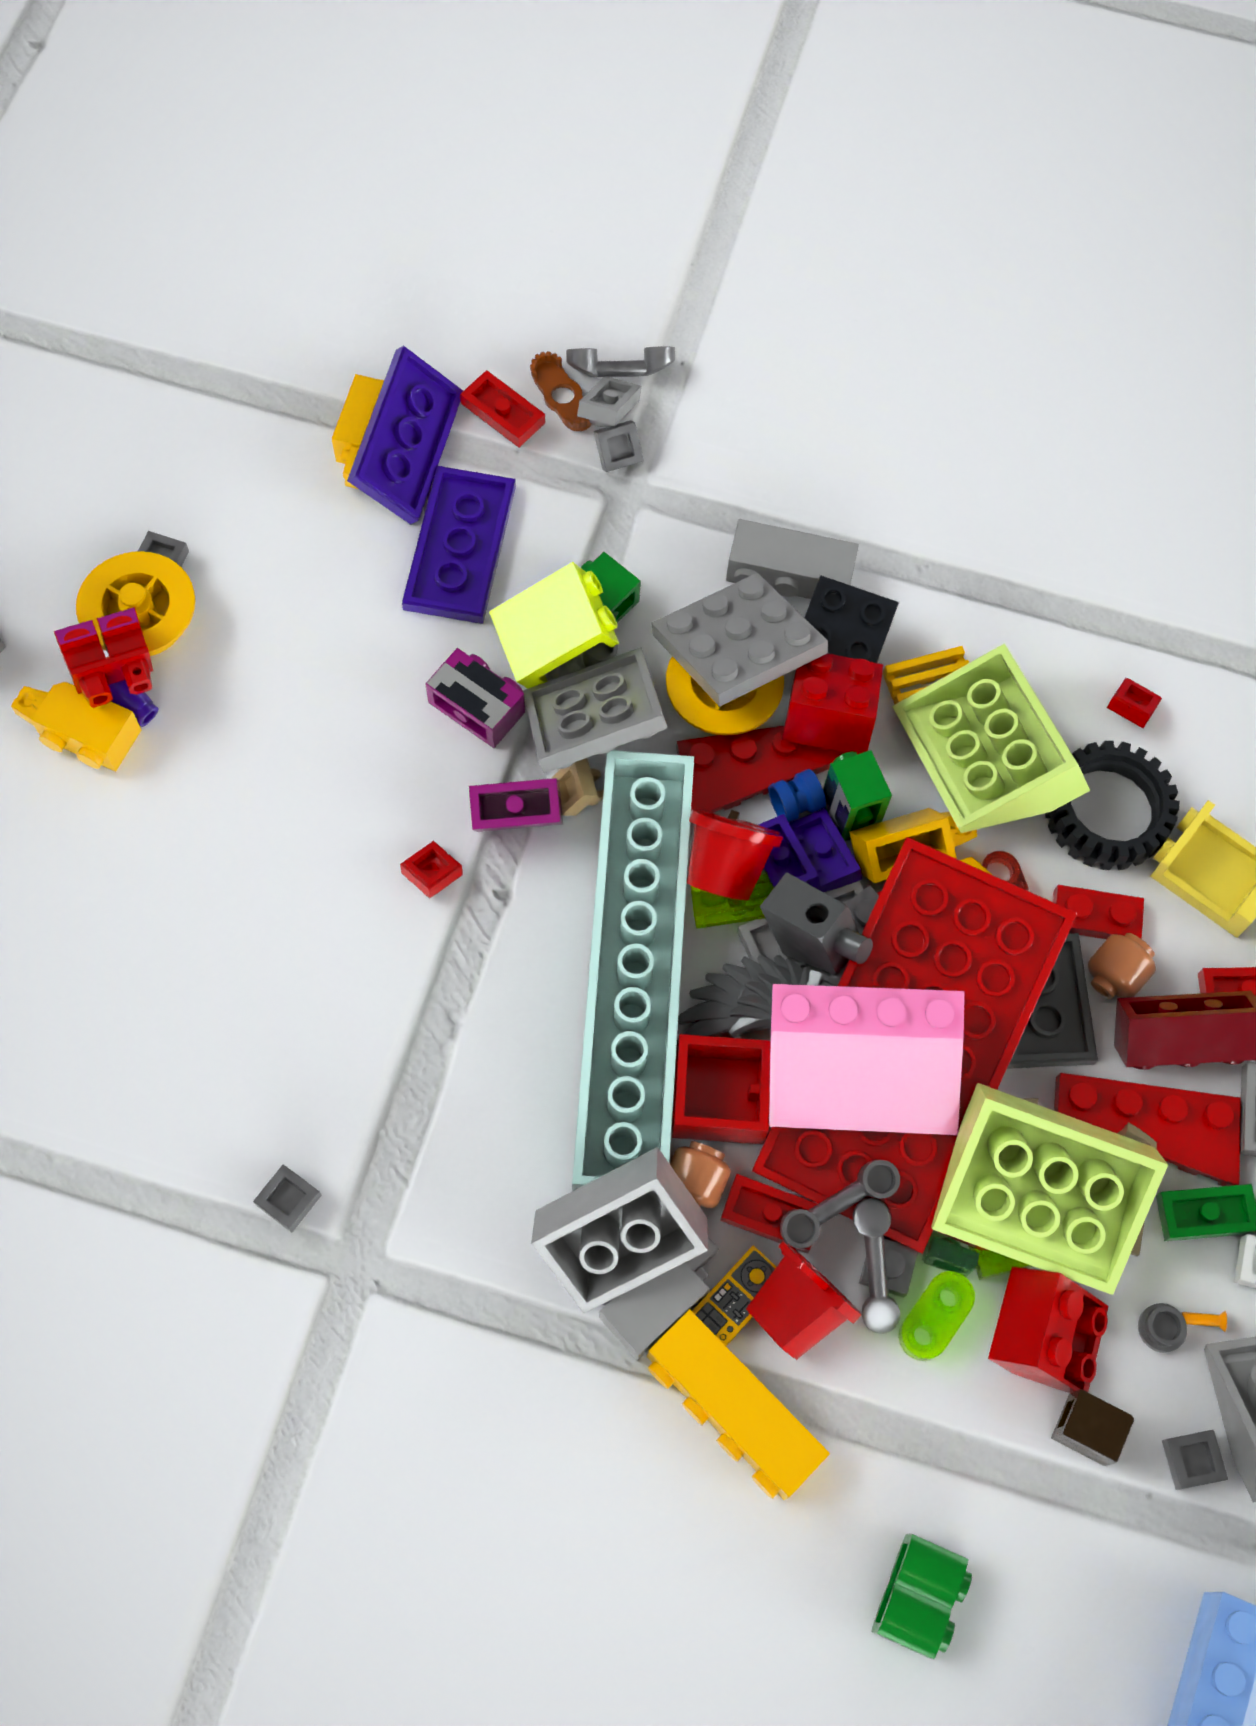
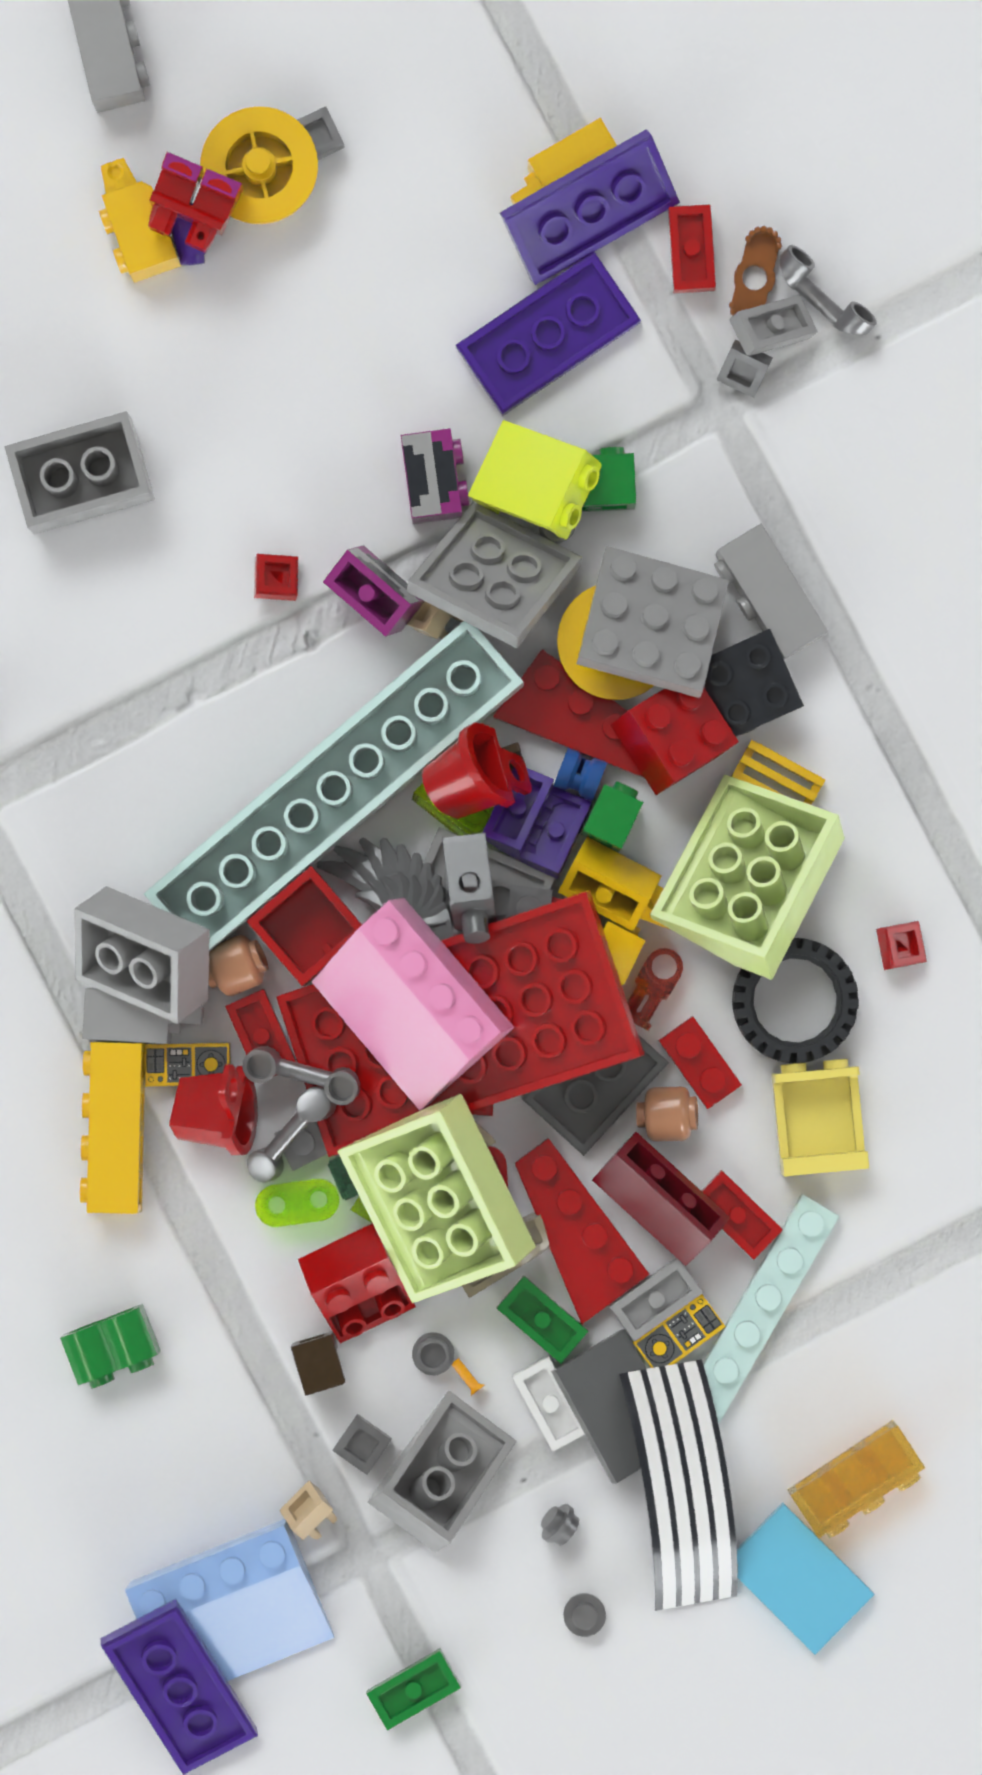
camera: 55 degrees right, 20 degrees up
(203, 926) = (79, 473): none -> light grey brick
(1217, 1563) = (307, 1511): none -> tan tile

